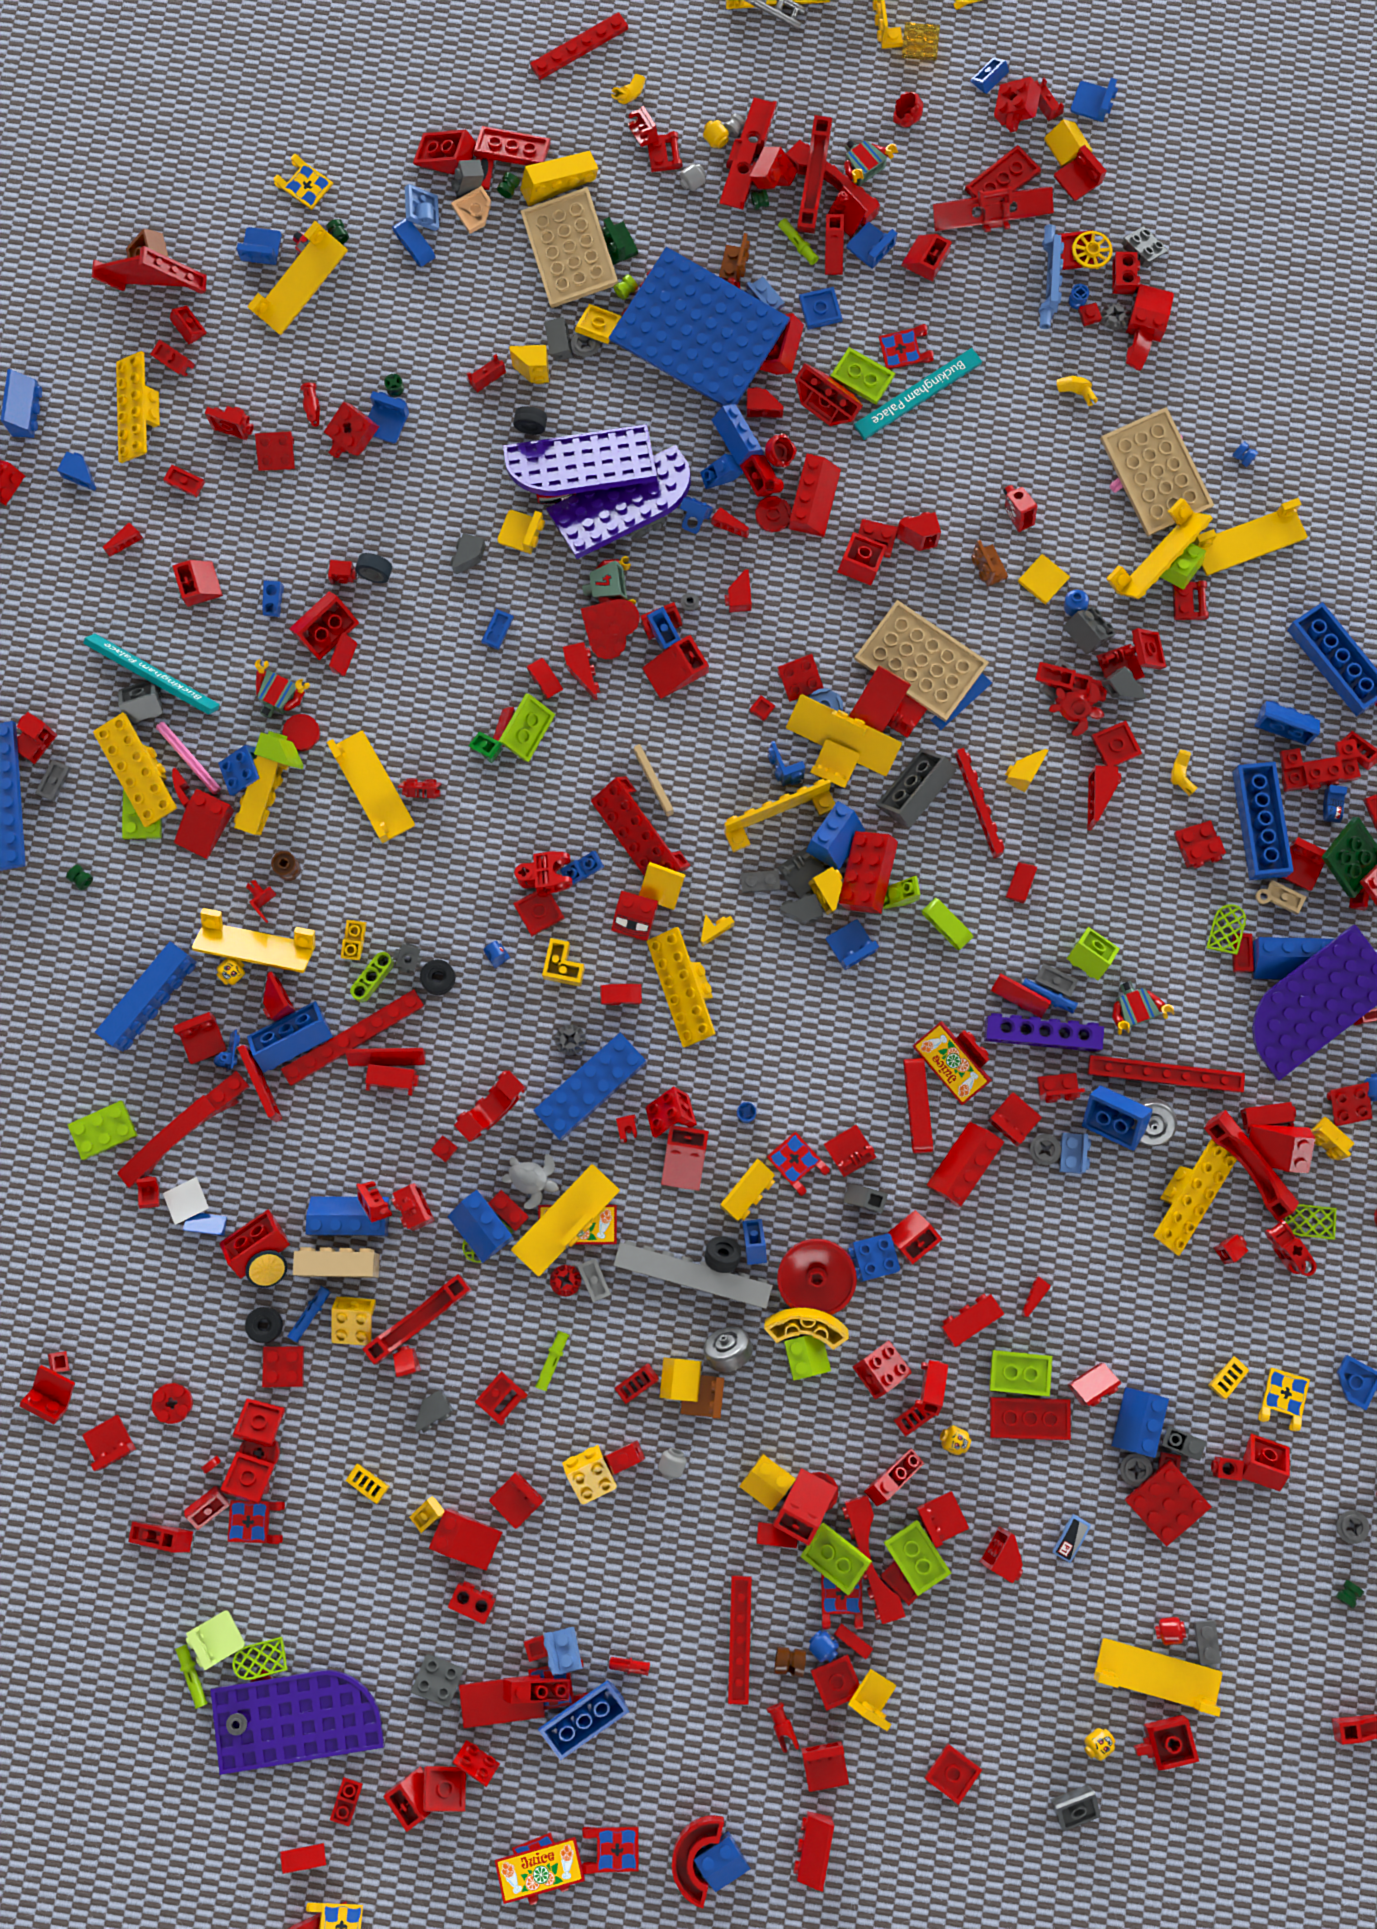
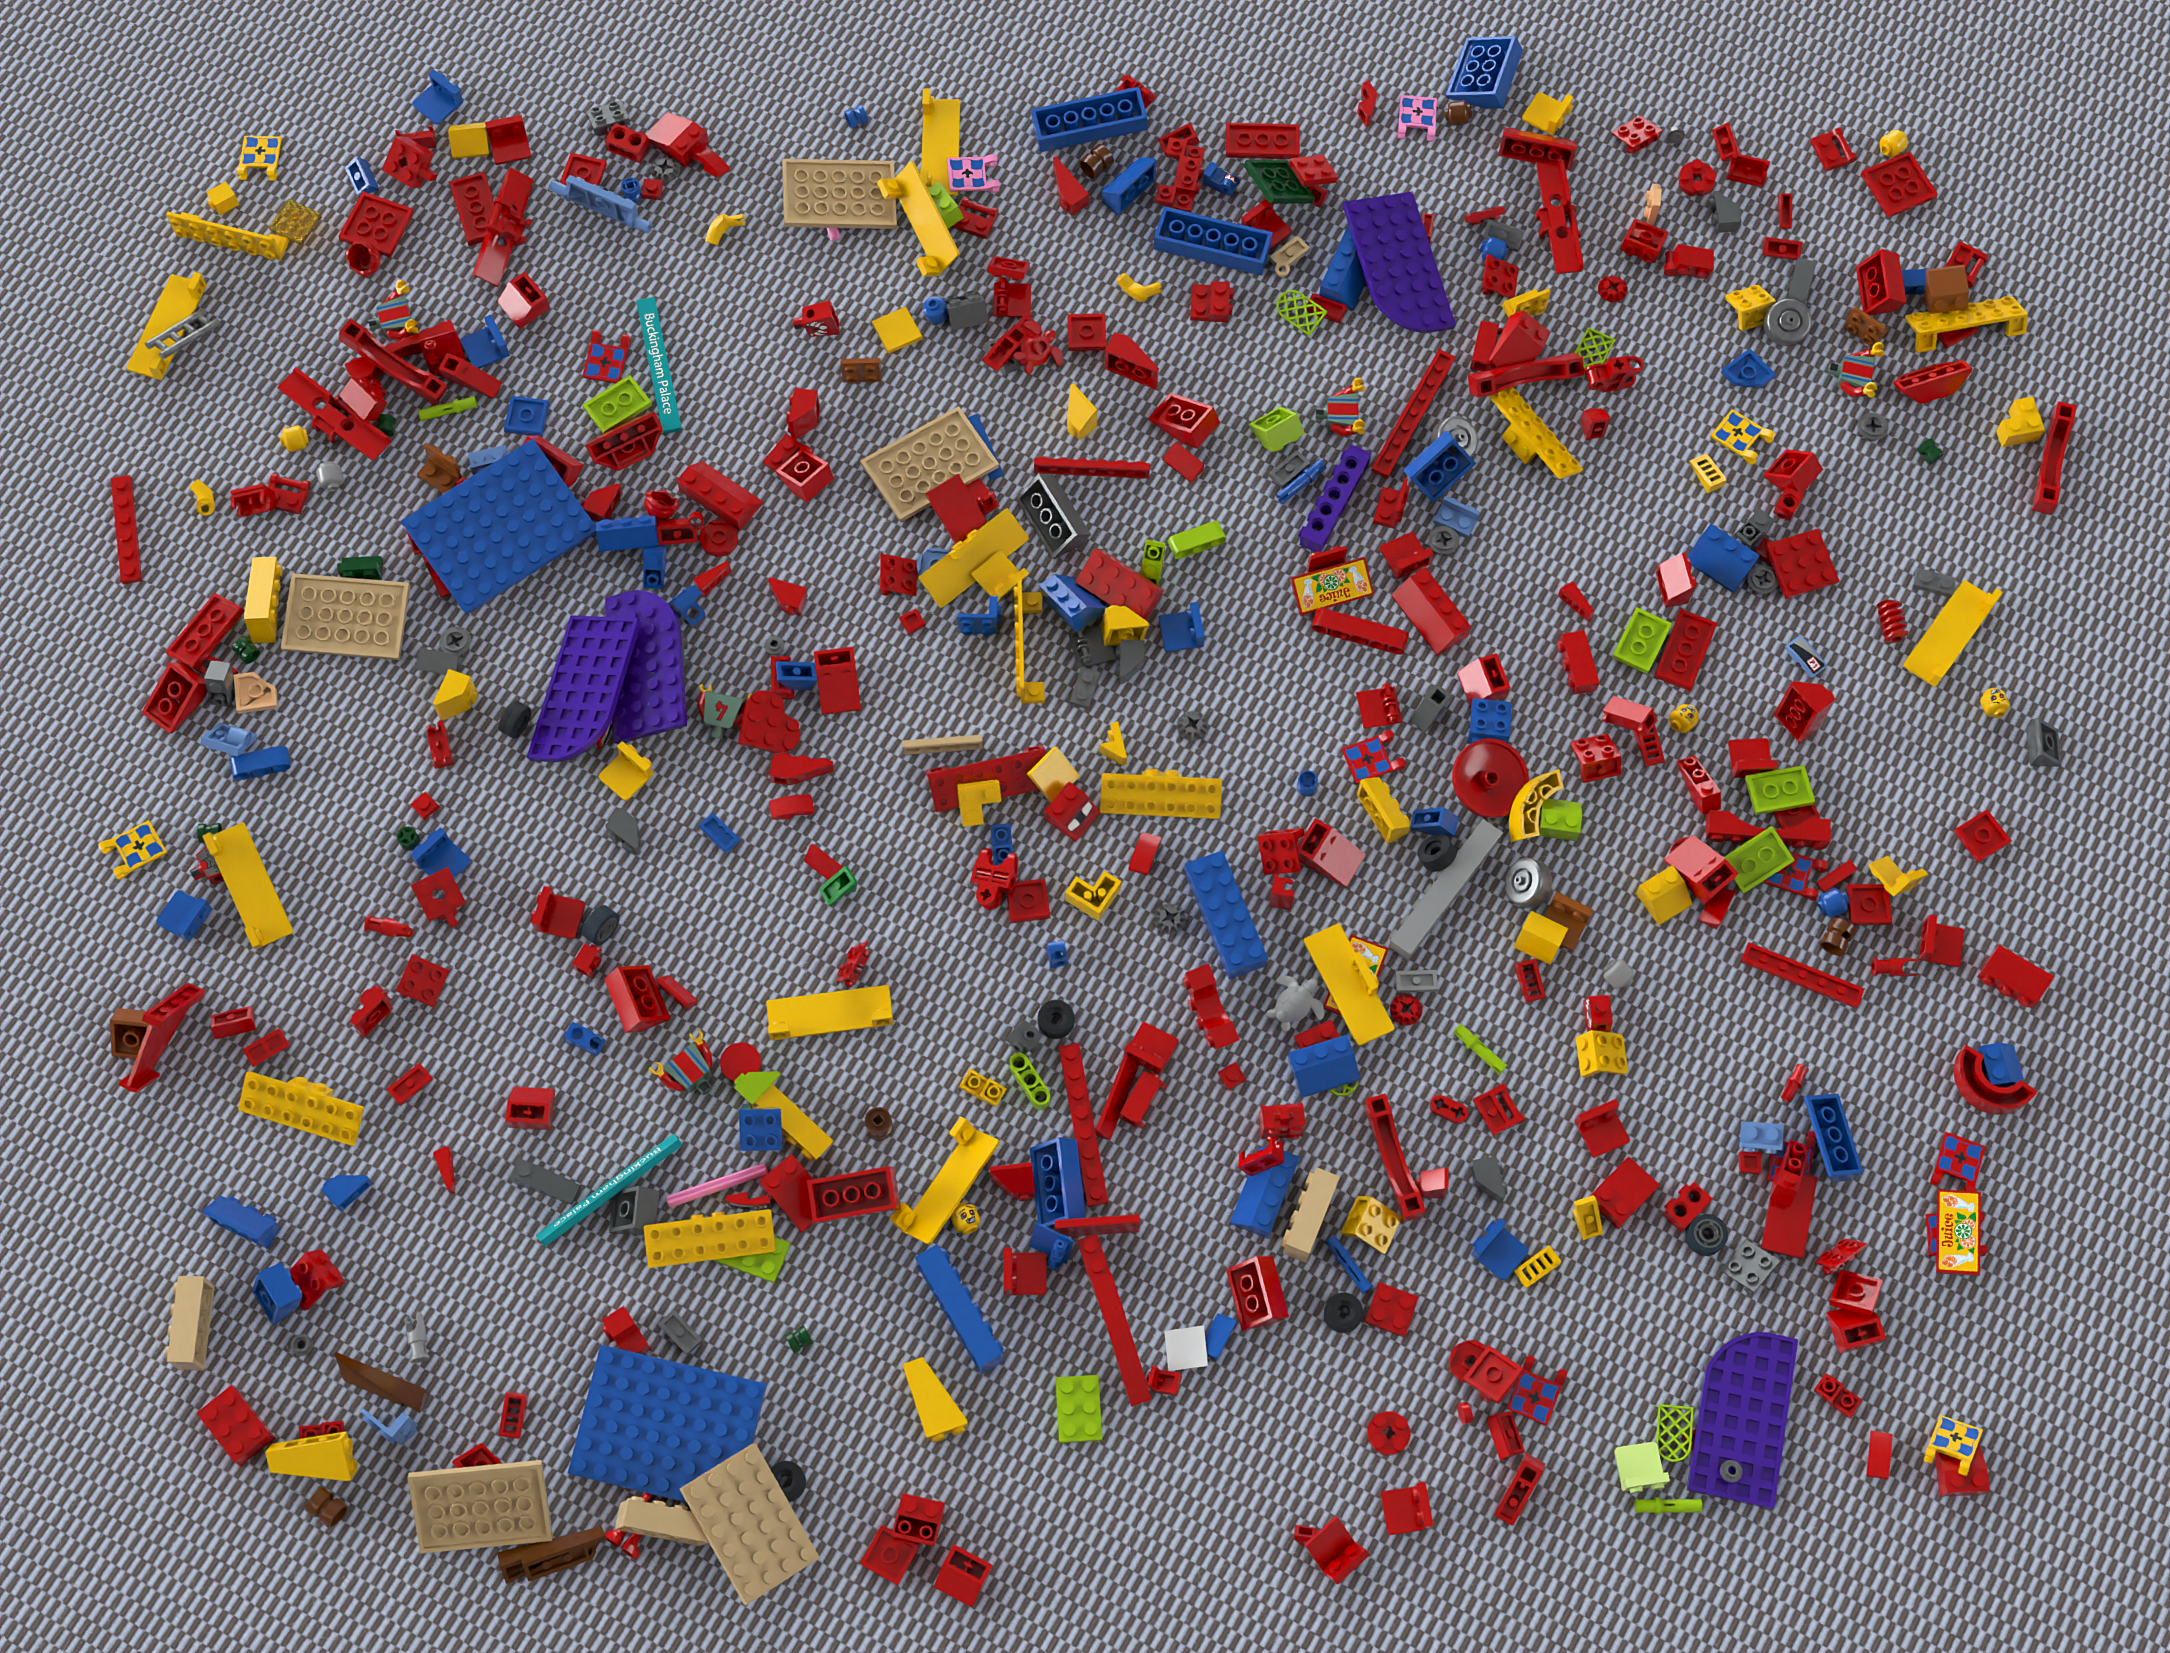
camera: 70 degrees left, 10 degrees down
(63, 1008) = (934, 1404): none -> yellow slope
(140, 619) = (544, 1181): none -> dark grey slope
(208, 869) = (853, 1194): none -> red brick
(259, 1422) = (1440, 1349): red tile -> none
(260, 897) = (899, 1162): red bracket -> none
(266, 1269) = (1288, 1288): yellow wheel -> none
(369, 1444) = (1499, 1250): none -> blue bracket
(373, 530) = (557, 914): none -> red bracket
(429, 385) = (424, 805): none -> red plate
(441, 1068) = (1151, 1048): none -> red bracket
(443, 1638) = (1714, 1226): none -> wheel
(480, 1352) = (1446, 1113): none -> red beam
(527, 727) = (837, 839): lime plate -> none
(597, 323) = (441, 620): yellow tile -> none
(609, 825) = (972, 796): none -> yellow brick
(626, 286) = (414, 578): lime wheel -> none
(735, 125) = (294, 416): light grey wheel -> none
(764, 998) = (1190, 733): none -> flat silver gear
(948, 106) = (377, 222): none -> red plate
(1020, 995) = (1291, 504): red tile -> none
(1065, 867) = (1185, 419): none -> red slope
(1092, 250) = (591, 160): yellow wheel -> none
(1123, 685) = (1033, 302): dark grey slope -> none
(1144, 1612) = (1891, 621): none -> red piece
(1156, 1743) = (2012, 644): red hinge -> none
(1171, 1631) = (1915, 605): red head -> none
(1231, 576) = (970, 174): none -> bright pink flag
(1256, 671) = (1070, 191): none -> red slope
(1299, 683) = (1096, 161): none -> reddish brown wheel

